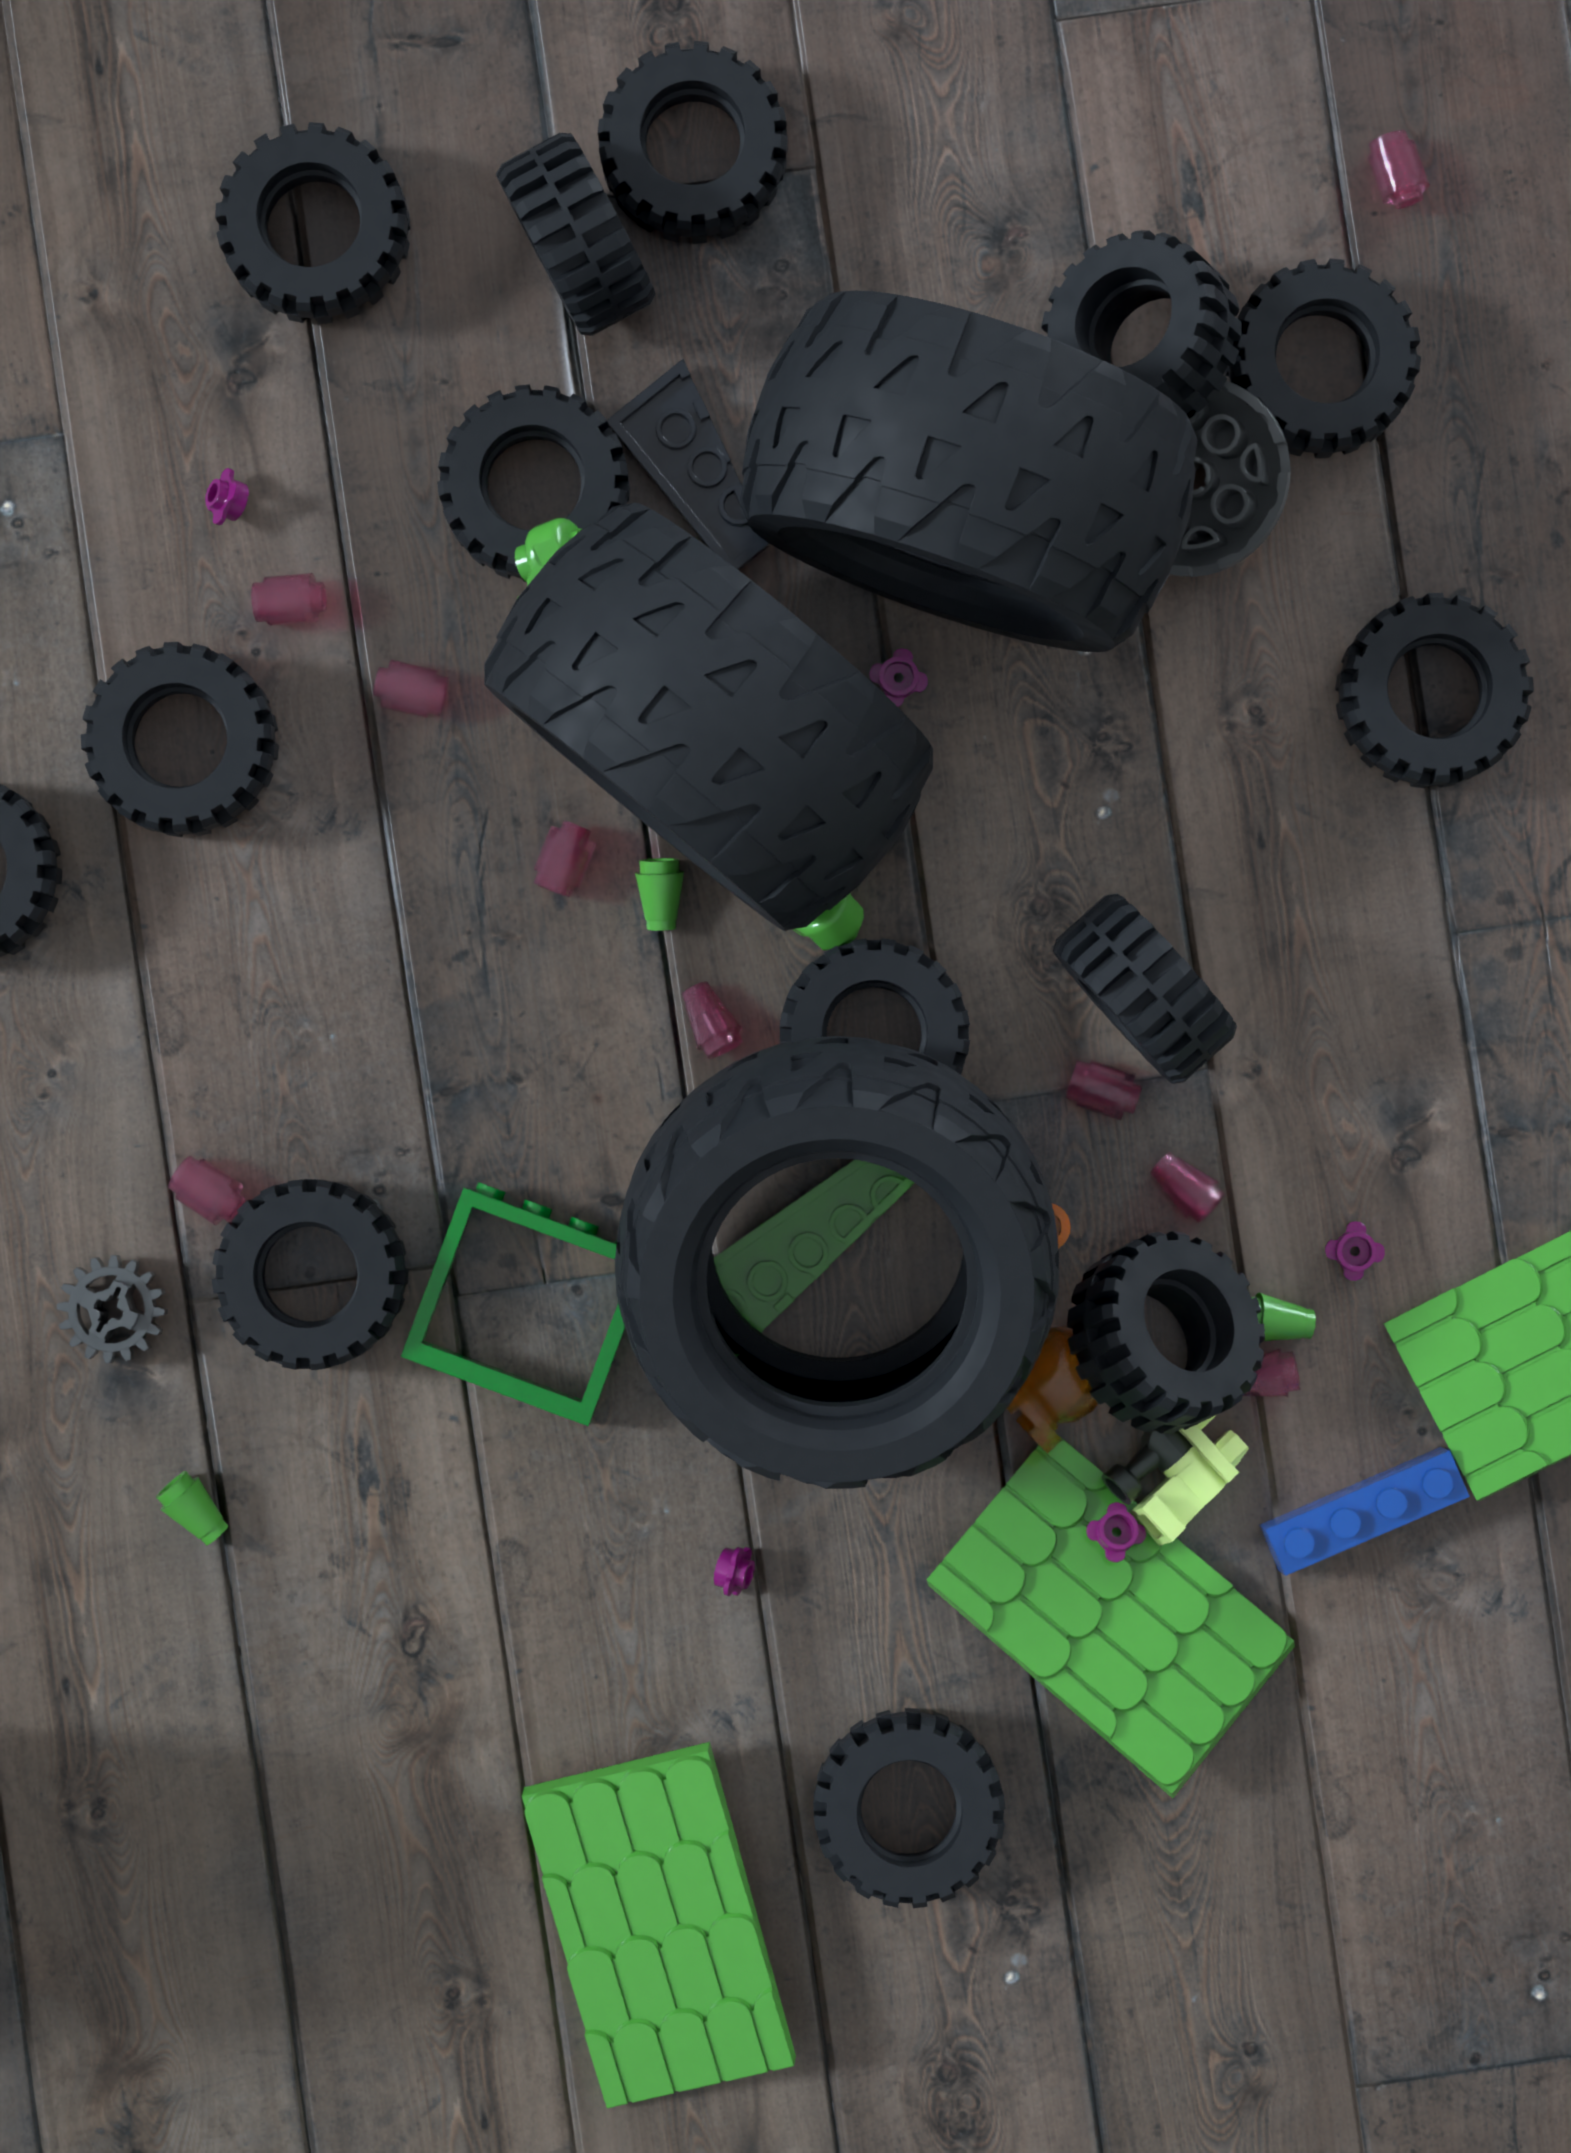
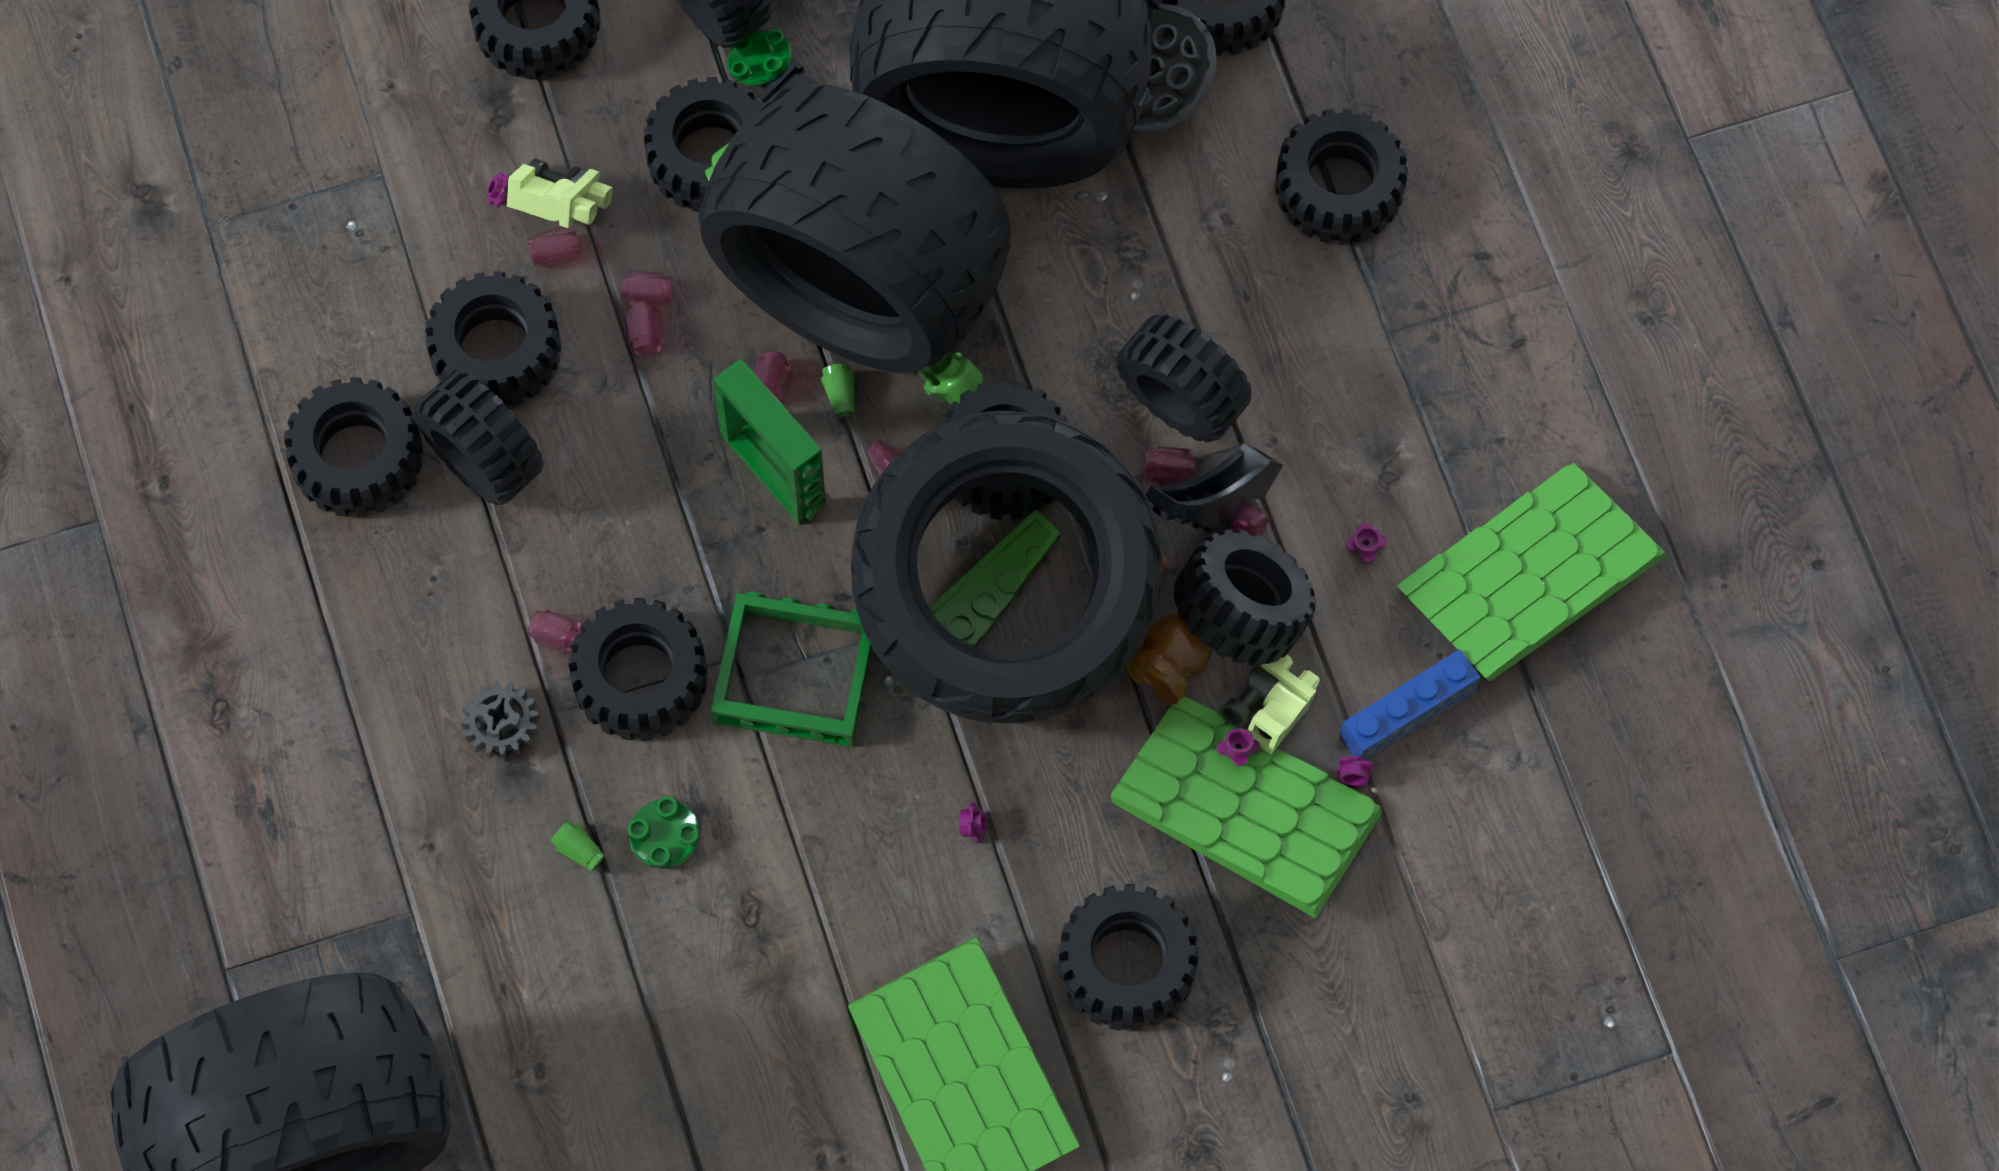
camera: 10 degrees left, 20 degrees down
(132, 907) = (478, 438): none -> black tyre
(307, 537) = (556, 194): none -> yellowish green hips
(312, 1509) = (664, 833): none -> green dish
(399, 751) = (645, 328): none -> clear pink brick
(541, 988) = (770, 441): none -> green window
(632, 352) = (760, 58): none -> green dish
(1156, 1168) = (1219, 494): none -> black arch
(1270, 1587) = (1355, 771): none -> magenta plate
(1277, 1375) = (1323, 631): clear pink cone -> none
(1284, 1319) = (1329, 593): bright green cone -> none

